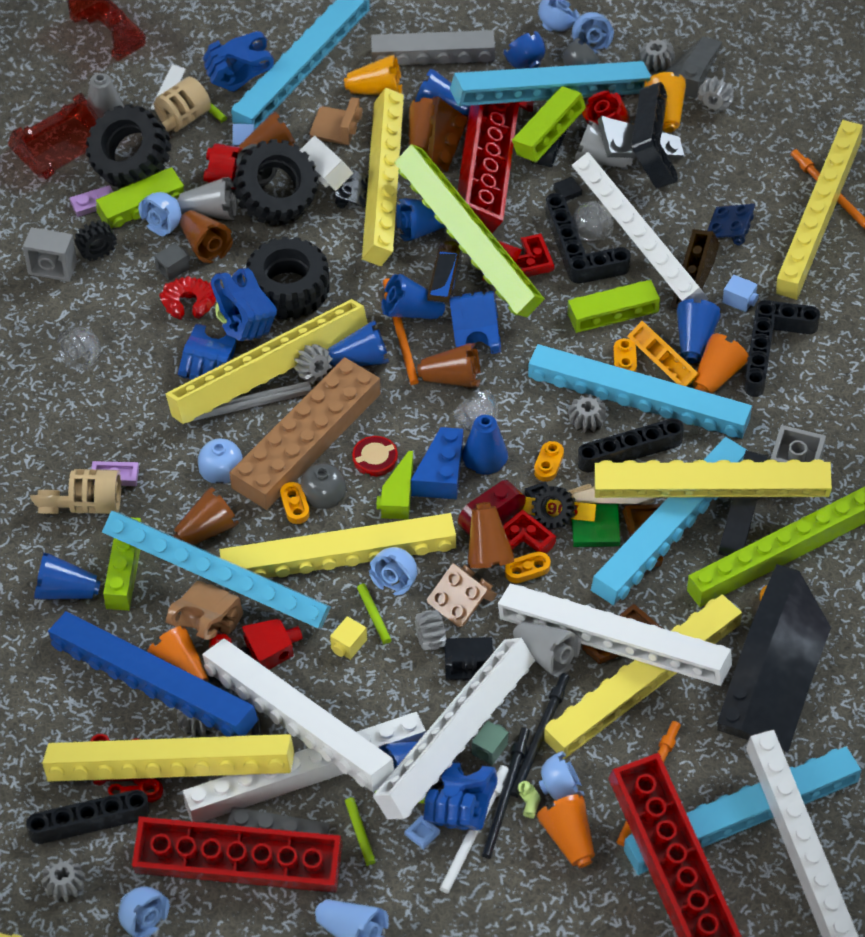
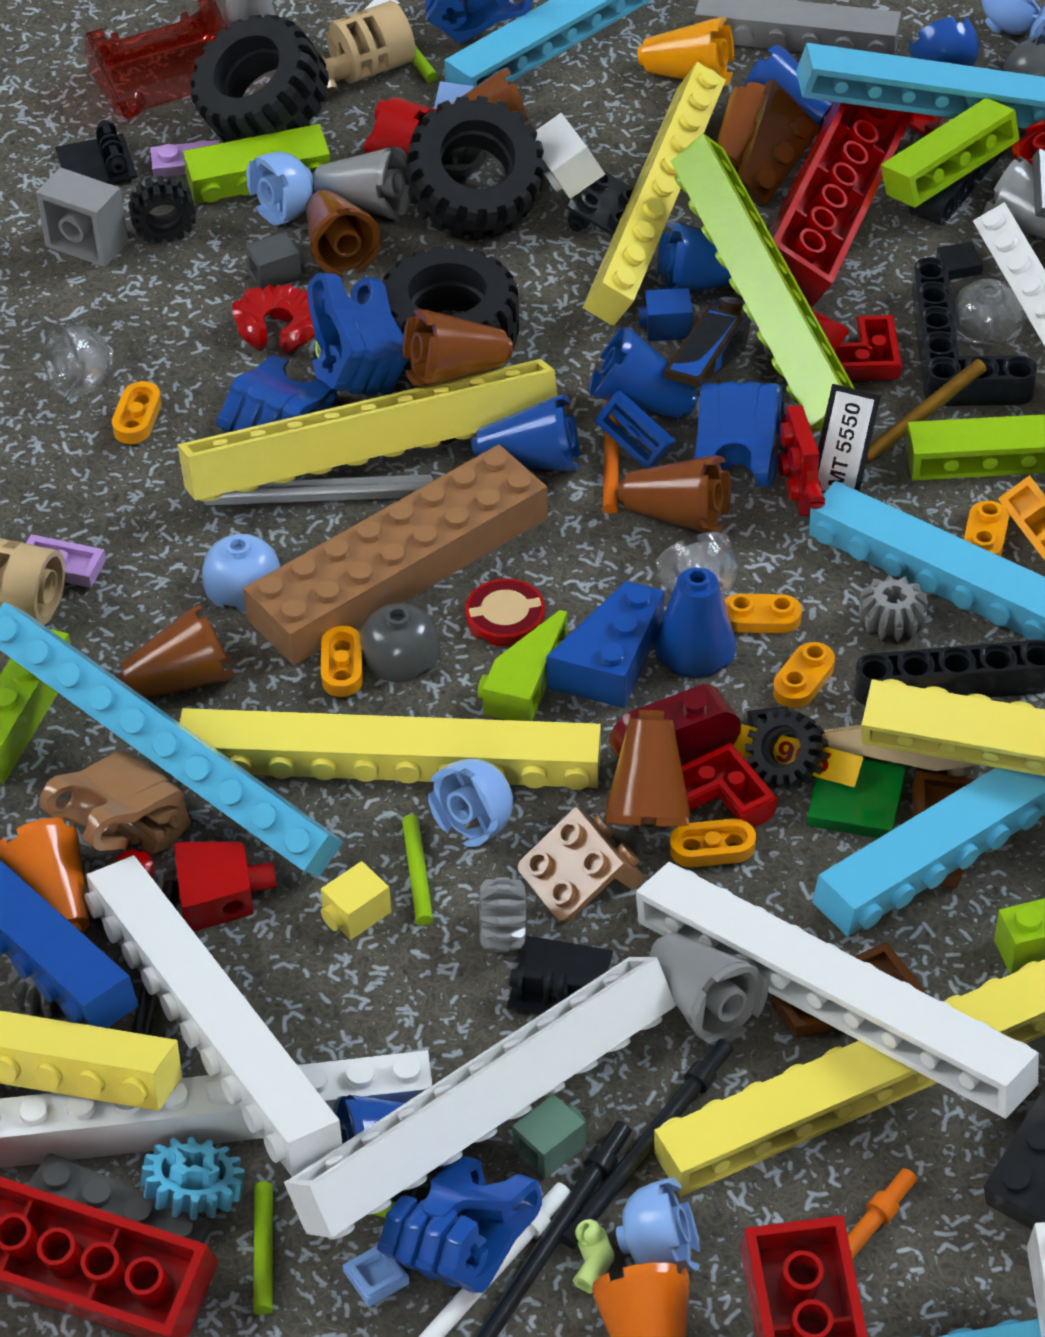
camera: 15 degrees right, 5 degrees down
(39, 211) = (99, 158): none -> black hinge
(124, 375) = (132, 419): none -> light orange plate
(301, 304) = (451, 347): none -> dark orange cone
(313, 363) = (455, 436): light grey gear -> none
(313, 803) = (192, 1178): none -> medium azure gear
(337, 124) = (610, 111): medium nougat bracket -> none
(412, 255) = (666, 314): none -> blue brick
(420, 326) = (641, 418): none -> blue tile
(515, 336) = (800, 461): none -> red plate
(517, 430) = (763, 613): none -> light orange plate
(537, 319) = (846, 436): none -> white sticker
(573, 291) = (926, 408): none -> pearl gold bar

